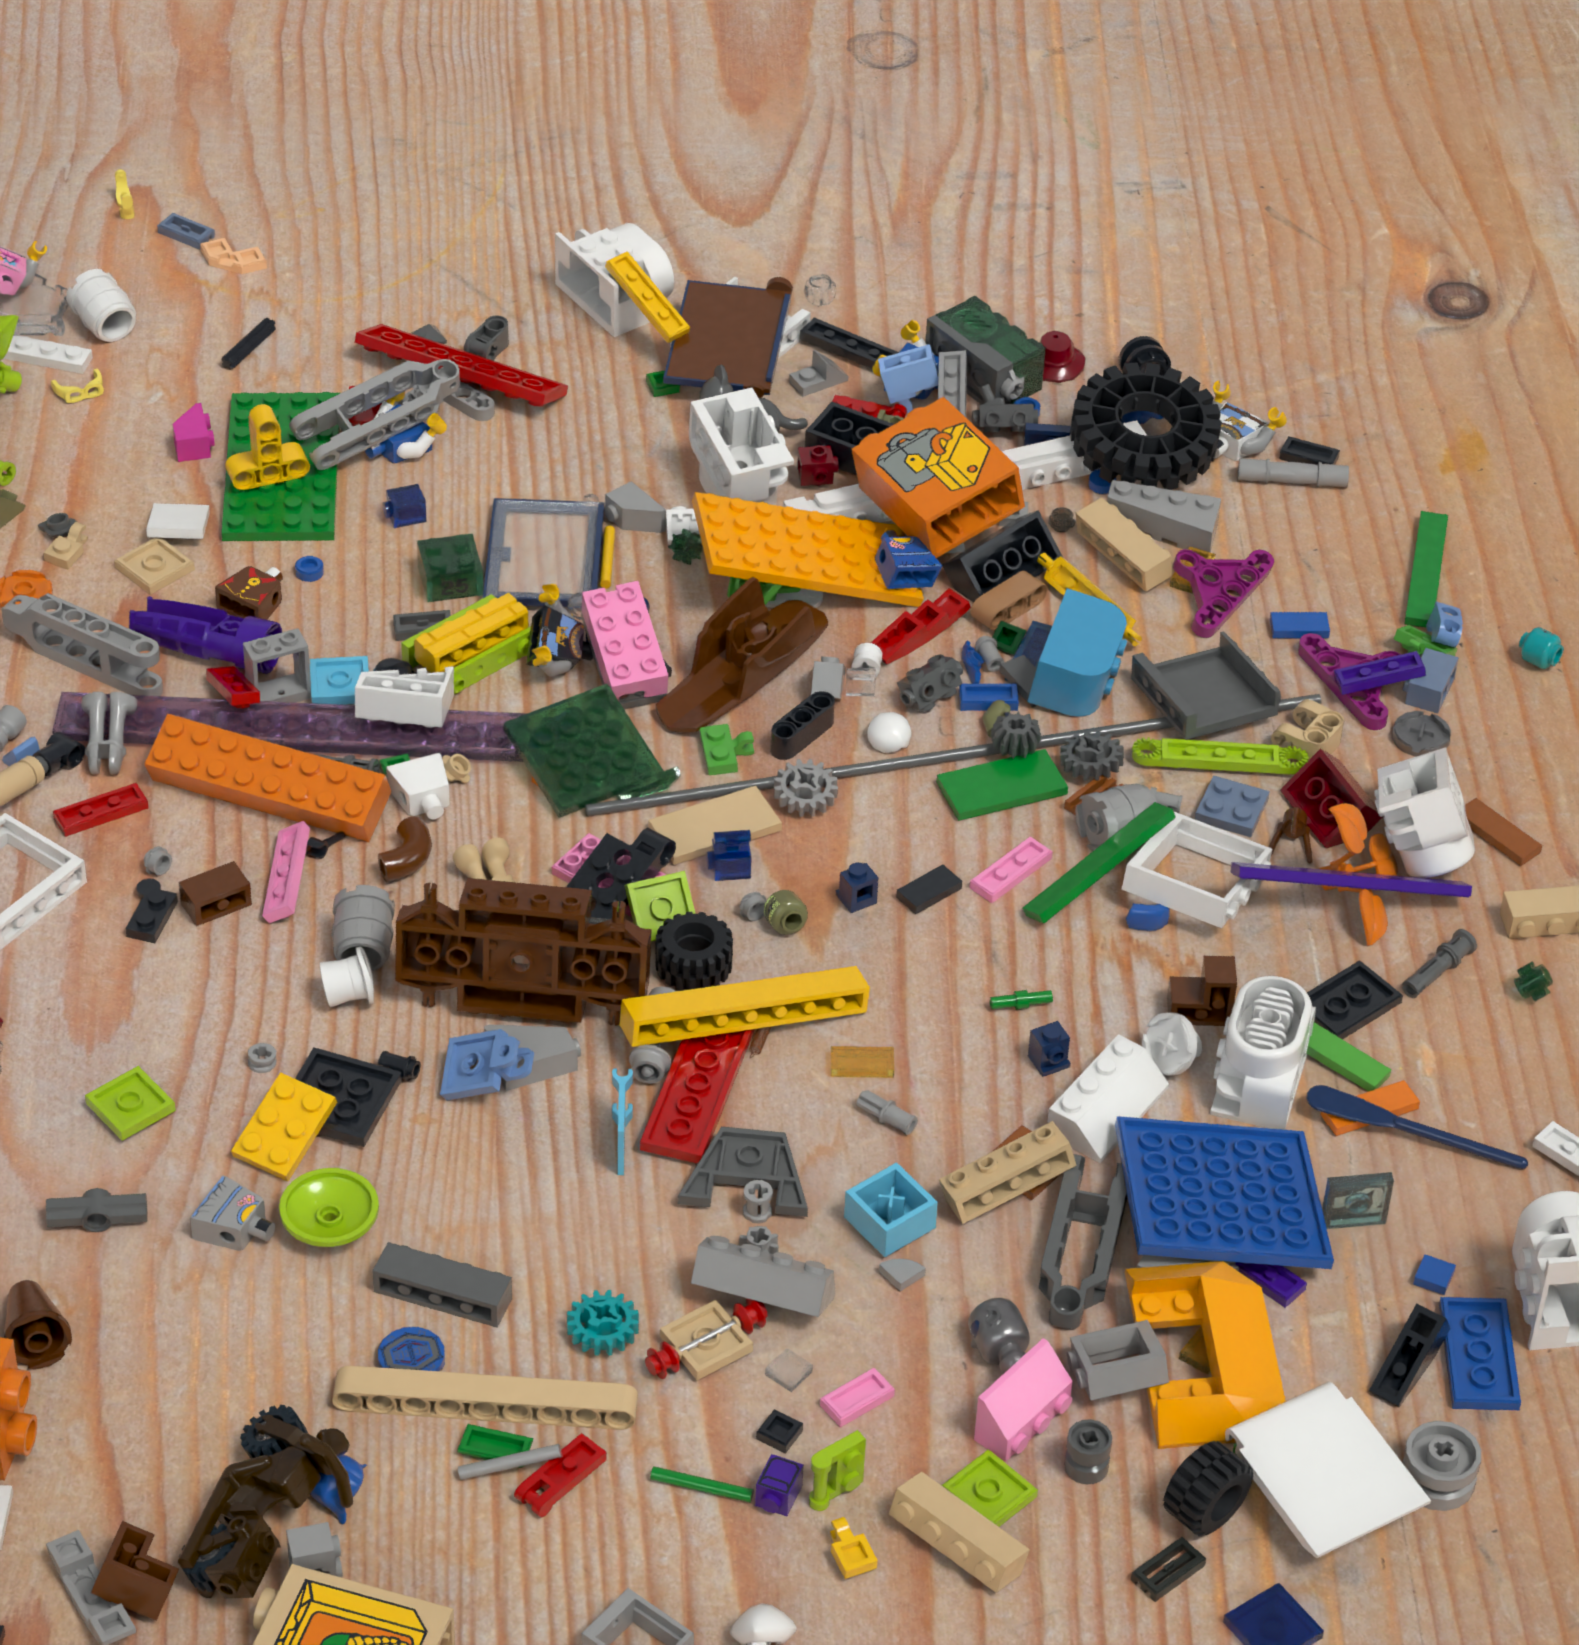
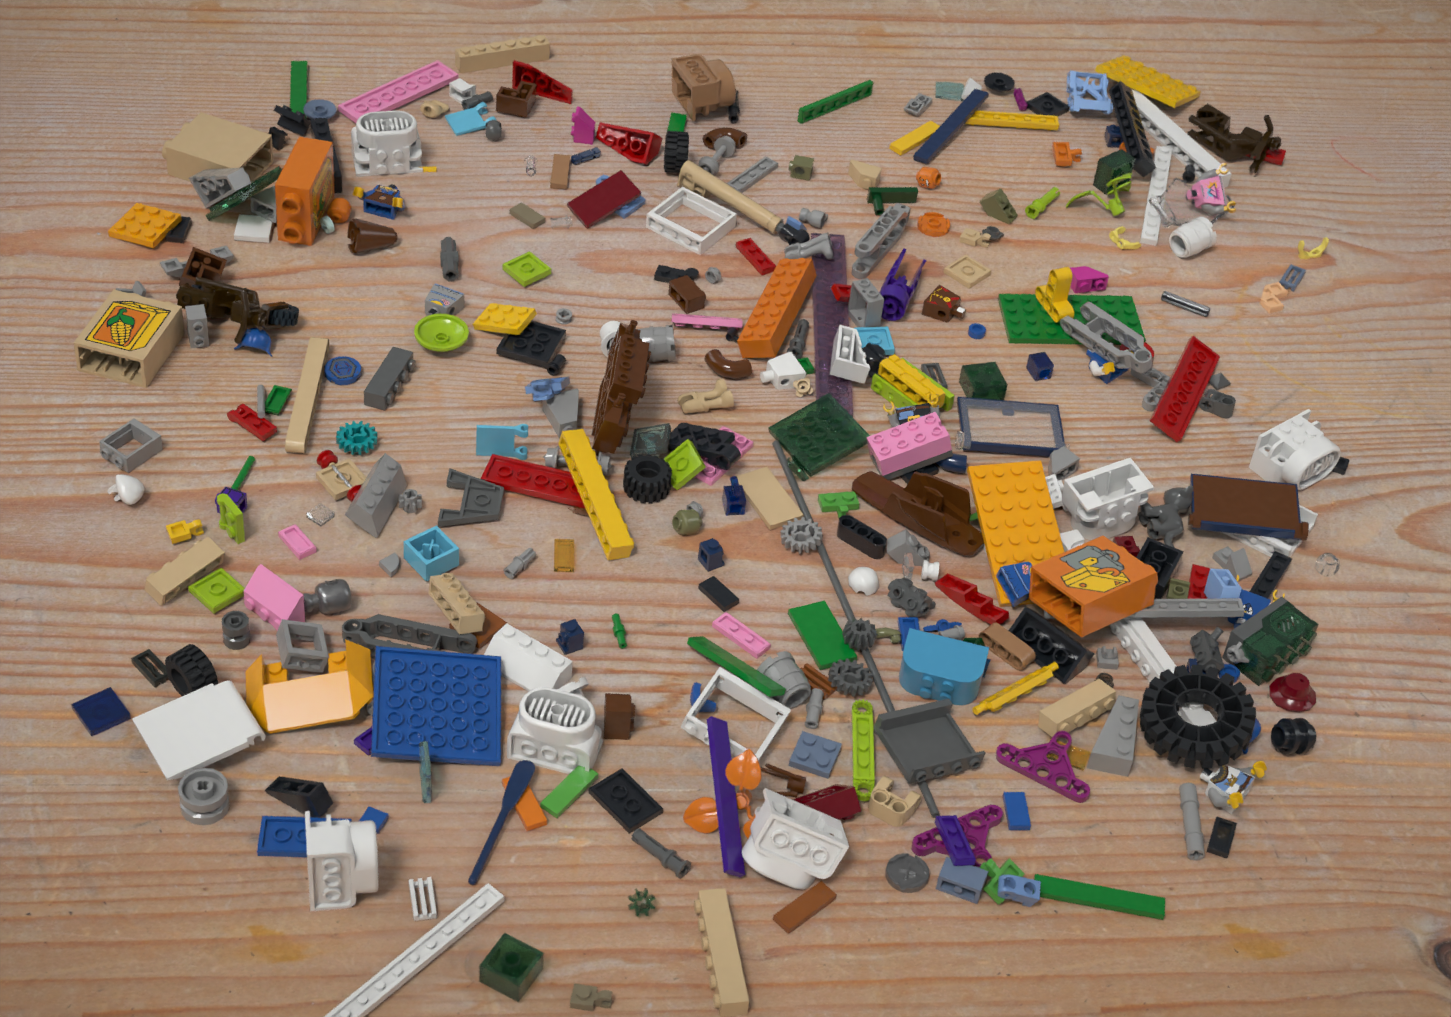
camera: 85 degrees right, 0 degrees up
(178, 521) = (1005, 276): white tile -> none
(607, 557) = (1015, 456): yellow bar -> none
(647, 297) = (1258, 454): yellow tile -> none
(750, 1209) = (445, 499): light grey bush -> none
(779, 1431) = (275, 509): black tile -> none
(1541, 648) = (1009, 953): teal head -> none

